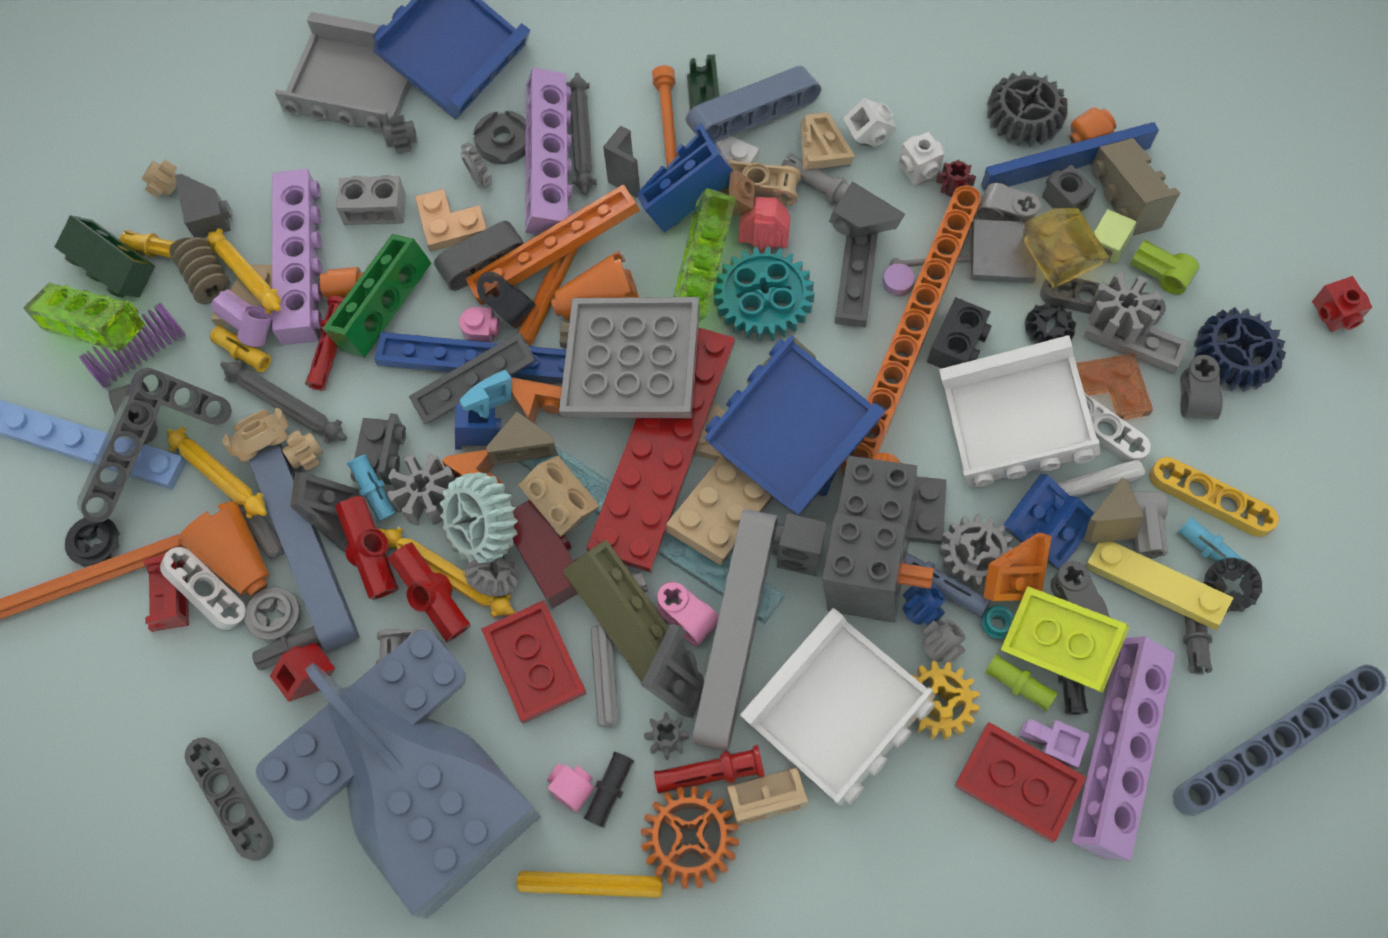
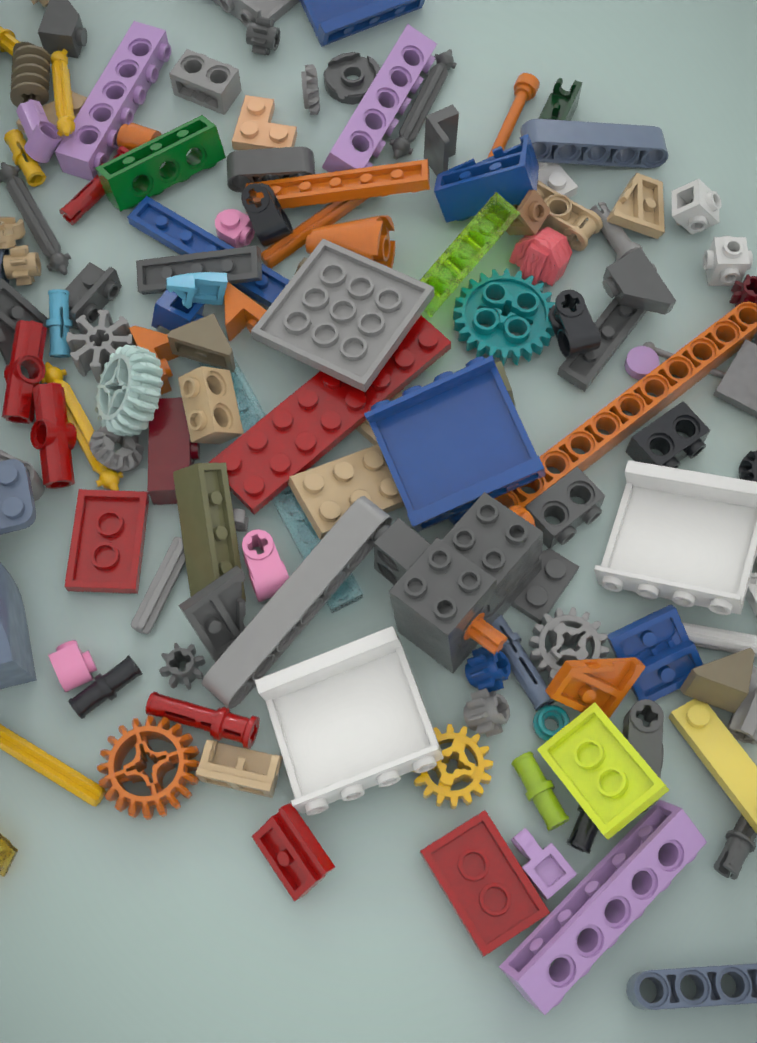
camera: 25 degrees right, 0 degrees up
(830, 277) = (573, 324): none -> black piece
(854, 841) = (293, 851): none -> red plate
(904, 435) = (558, 503): none -> dark grey brick

